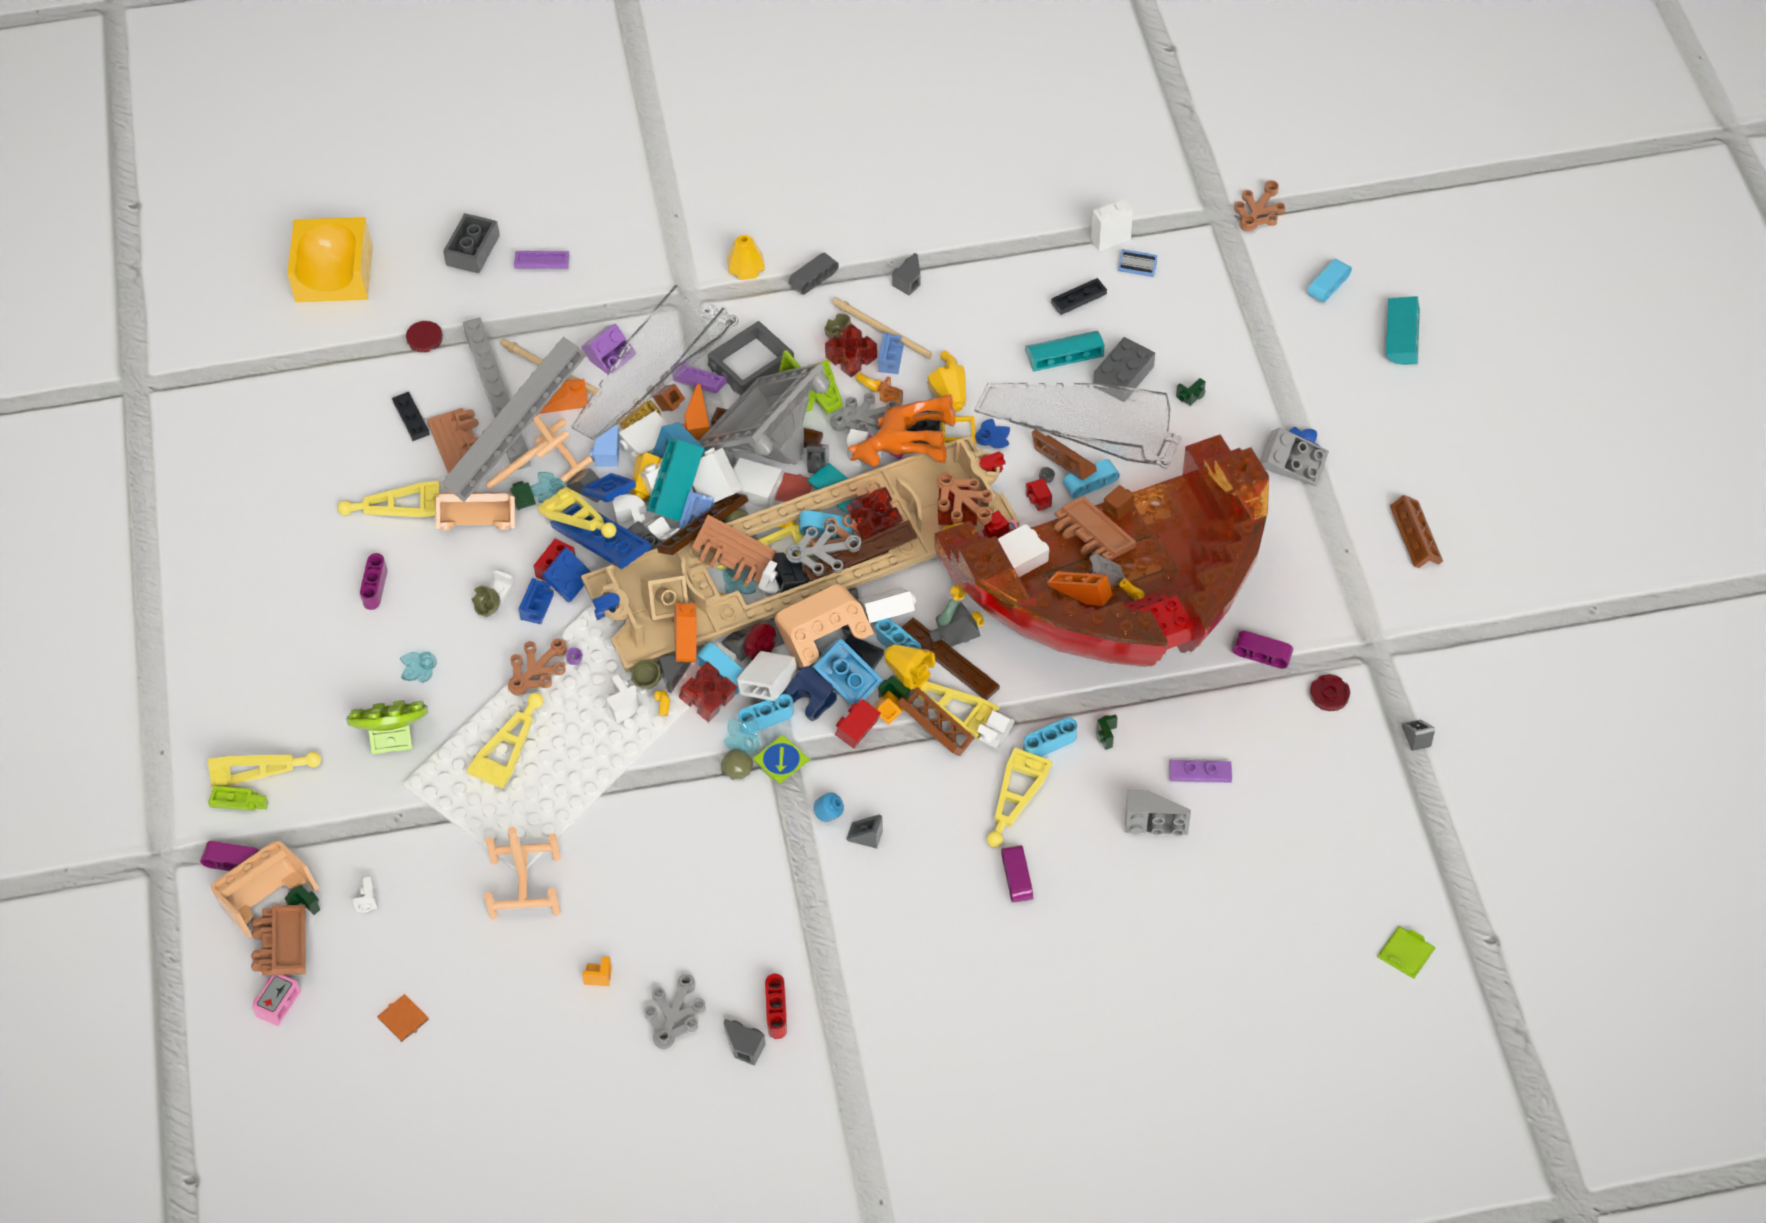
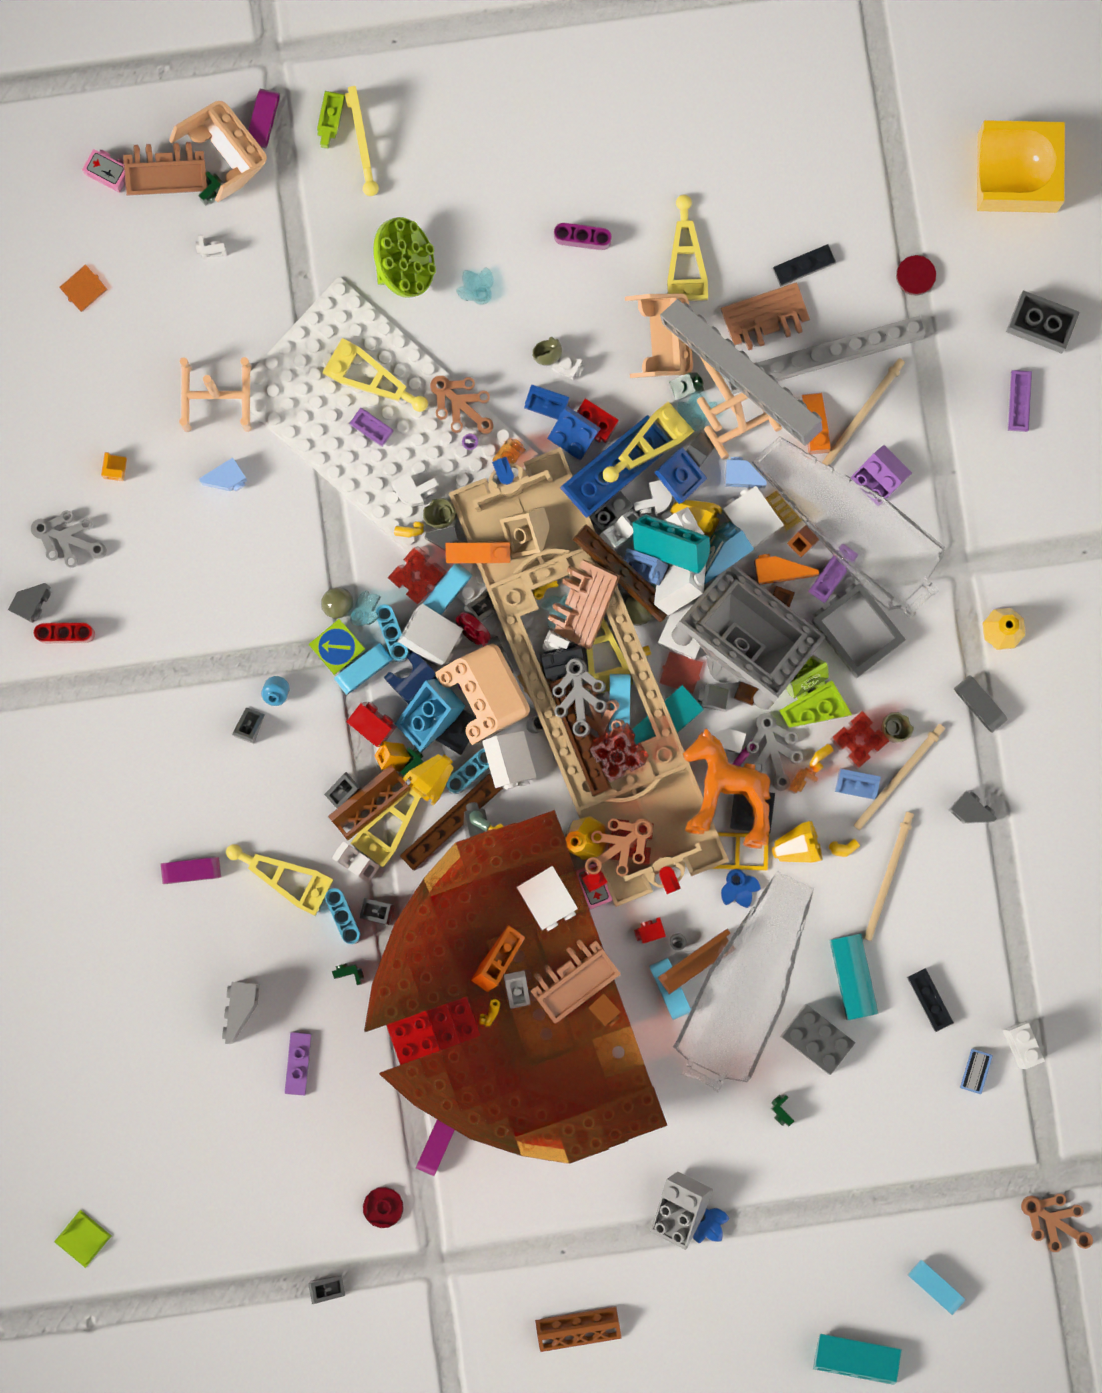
camera: 90 degrees right, 30 degrees up
(558, 739) = (371, 427): none -> medium lavender plate
(587, 623) = (511, 449): none -> clear orange bracket
(608, 866) = (225, 477): none -> light blue slope
(802, 736) = (363, 668): none -> medium azure beam
(923, 744) = (342, 790): none -> dark grey slope
(925, 321) = (905, 827): none -> tan bar
(1043, 707) = (377, 911): none -> dark grey slope

